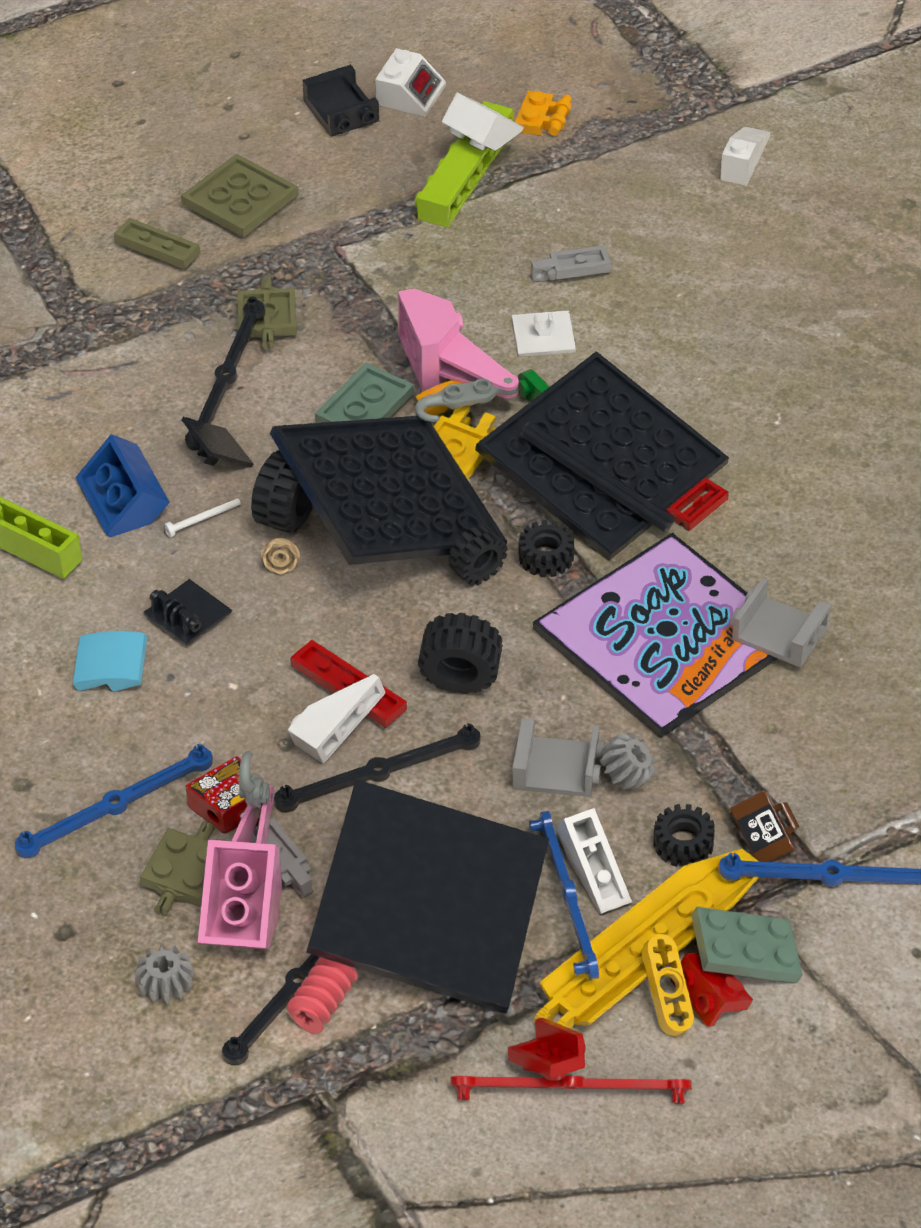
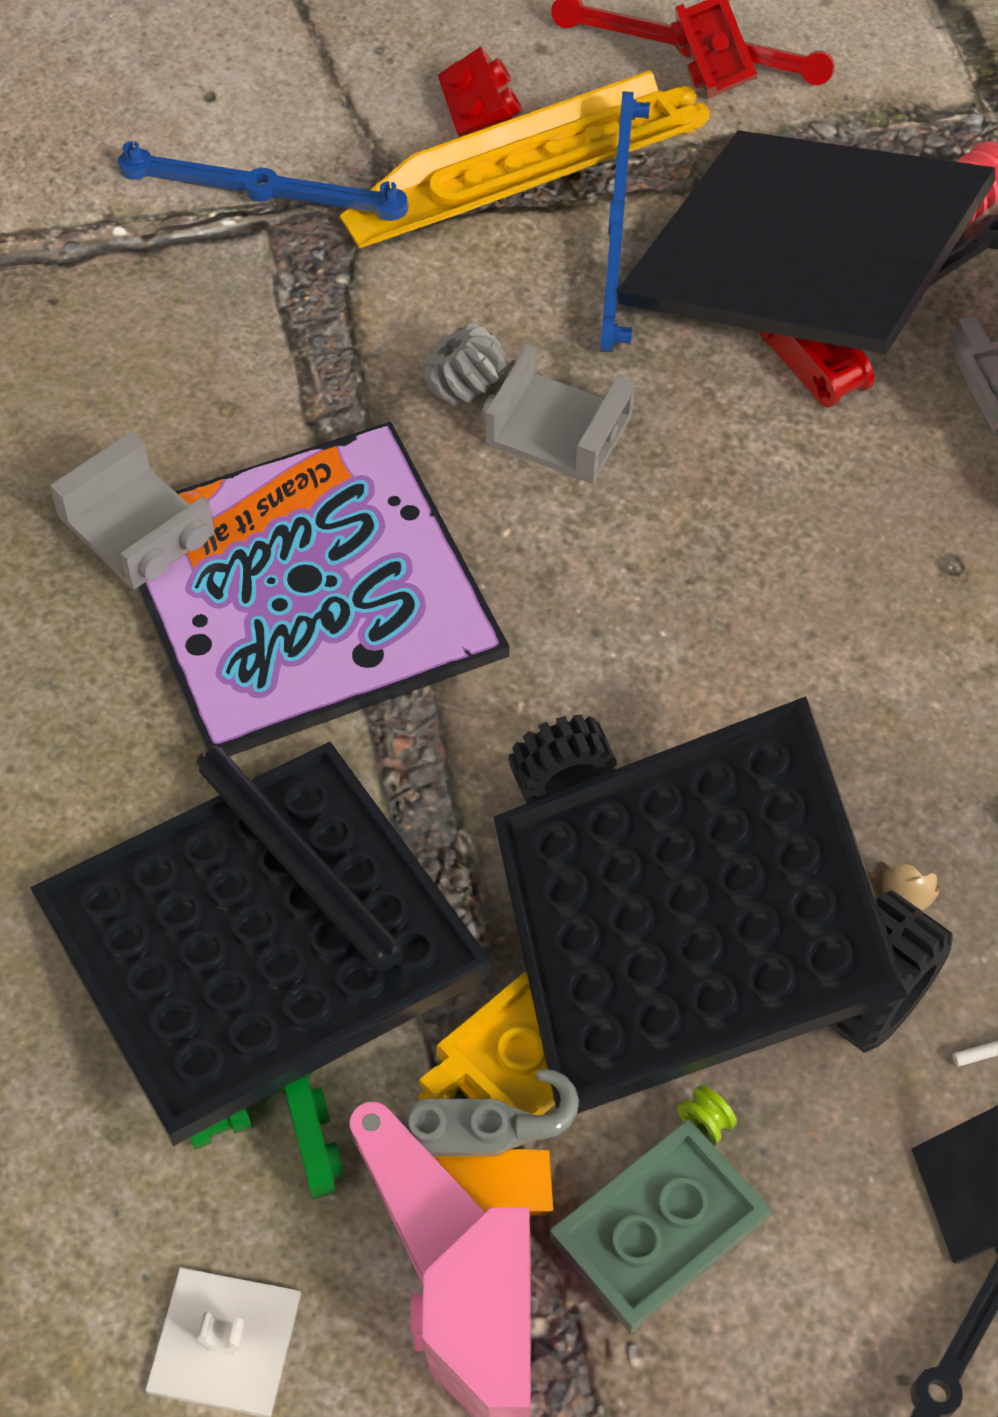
camera: 165 degrees left, 10 degrees up
(288, 799) = (965, 469): black piece -> none
(332, 719) = (877, 535): white slope -> none
(338, 674) = (838, 617): red plate -> none
(460, 653) = (657, 564): black tyre -> none
(546, 561) = (433, 752): black tyre -> none
(593, 860) = (567, 269): white slope -> none
(683, 1006) = (537, 89): yellow beam -> none
(684, 820) = (428, 253): black tyre -> none
(701, 507) = (135, 818): red tile -> none
(746, 945) = (419, 110): sand green plate -> none
(764, 828) = (316, 258): piece -> none

